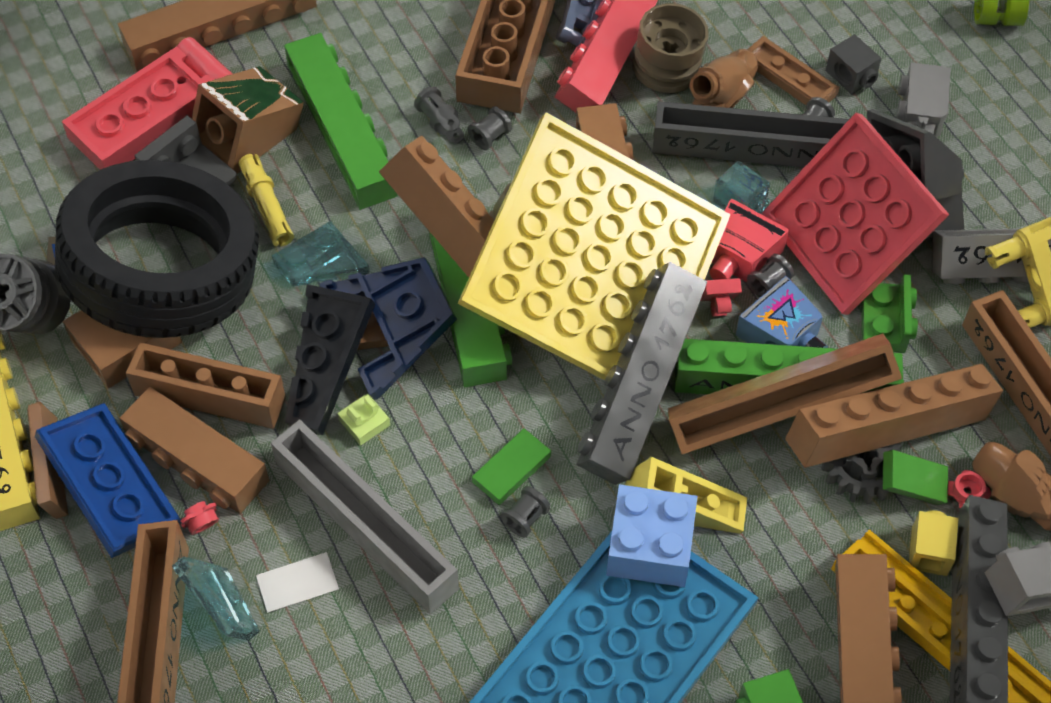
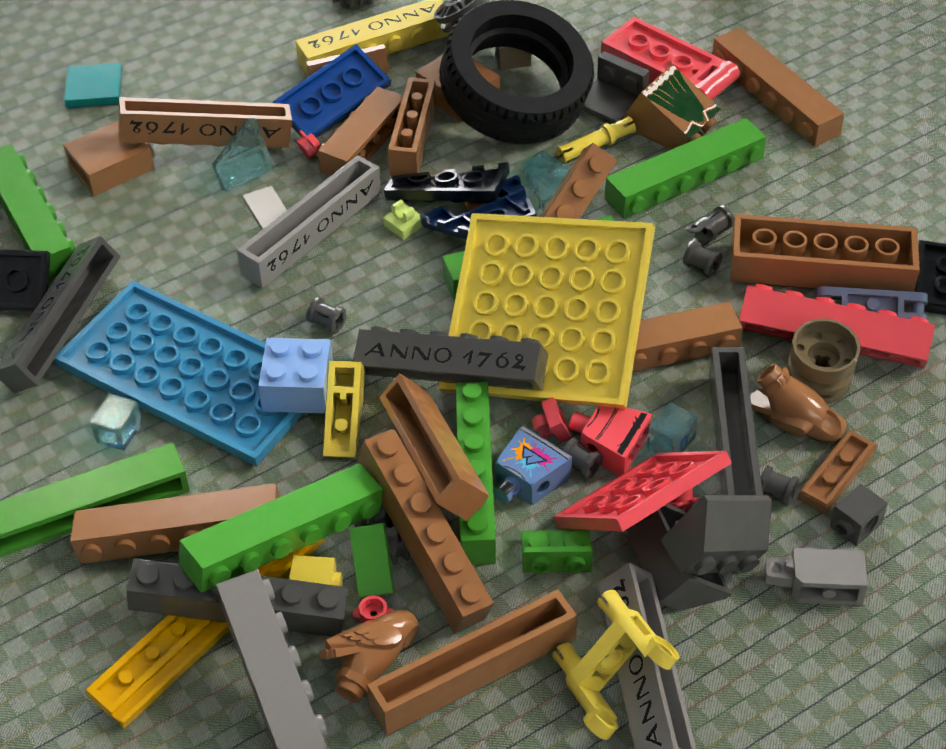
camera: 85 degrees right, 10 degrees down
(511, 466) = (370, 307): bright green tile -> none
(918, 545) = (279, 527): none -> bright green brick

